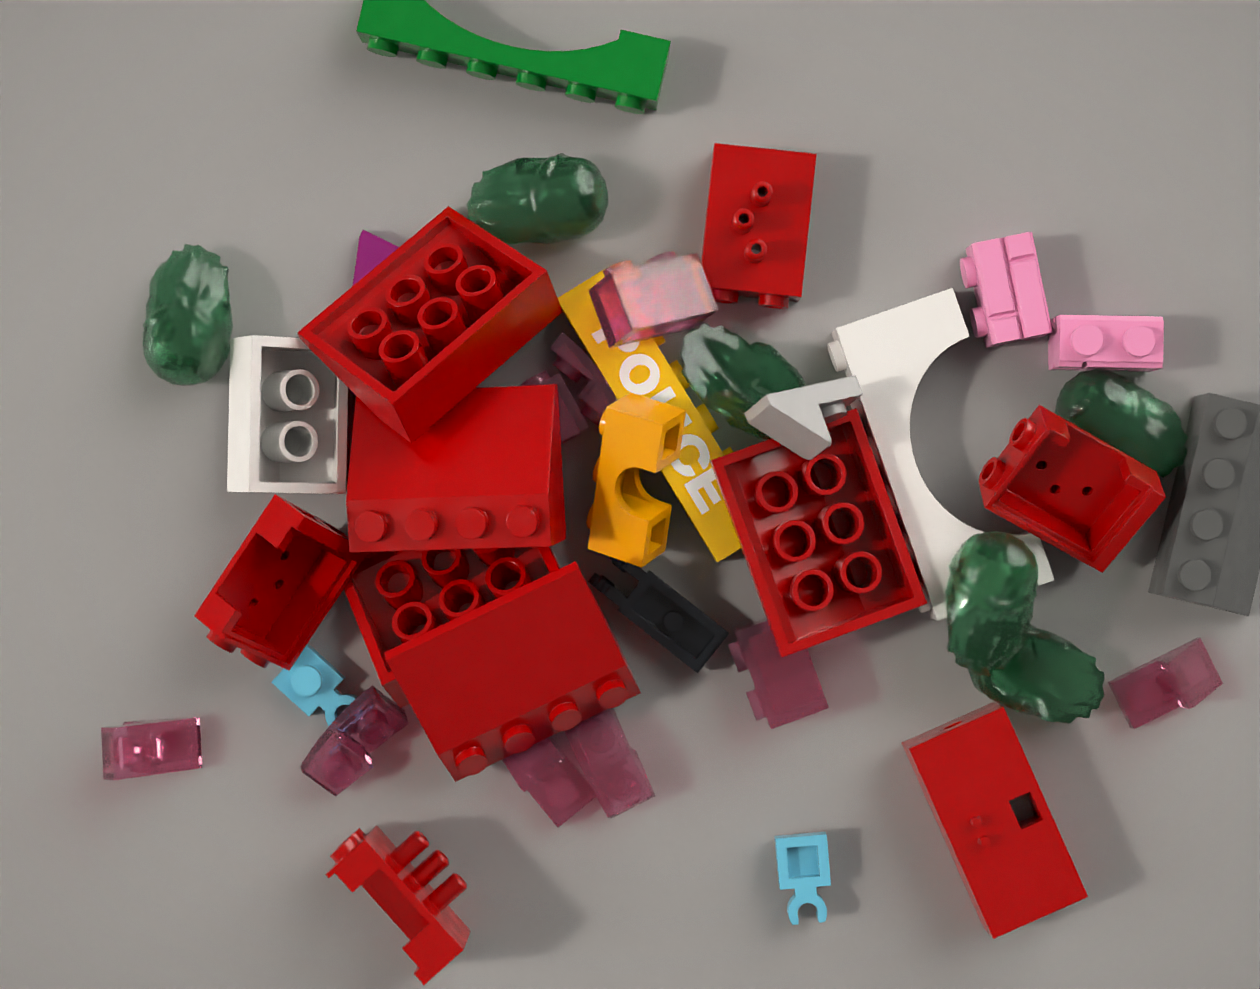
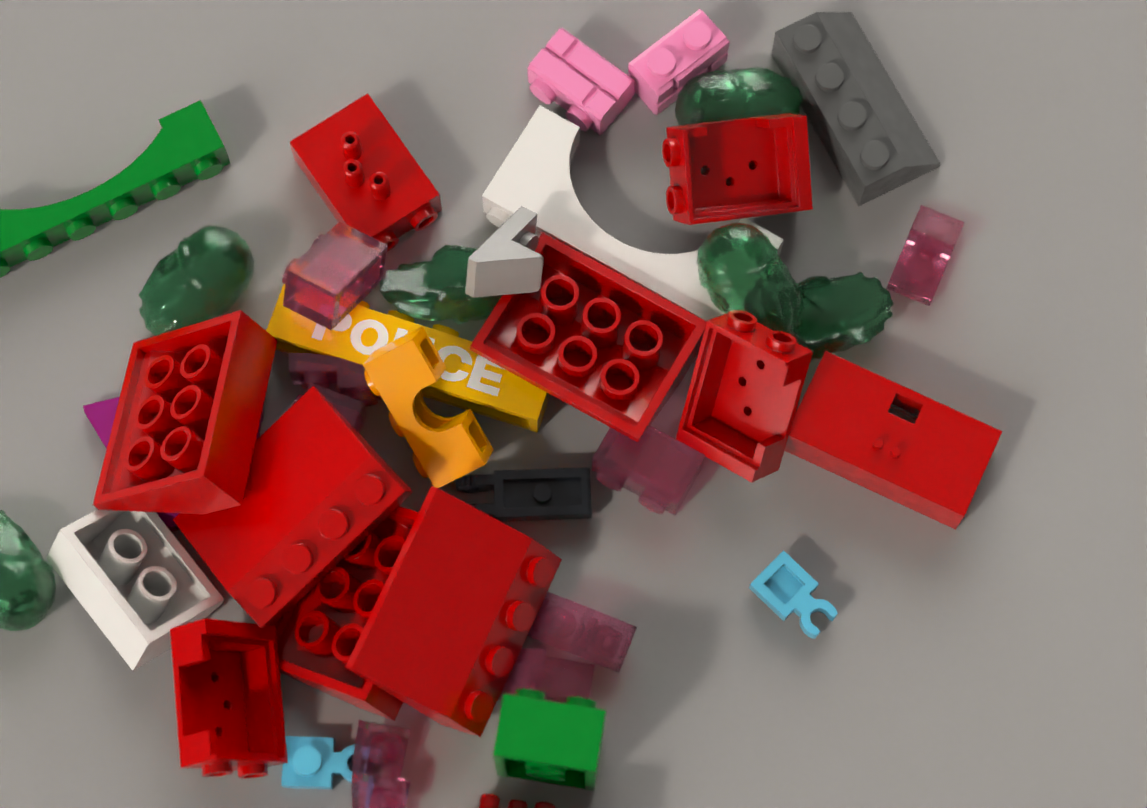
camera: 40 degrees left, 15 degrees down
(502, 843) = (549, 739): none -> green brick
(901, 691) = (743, 394): none -> red piece

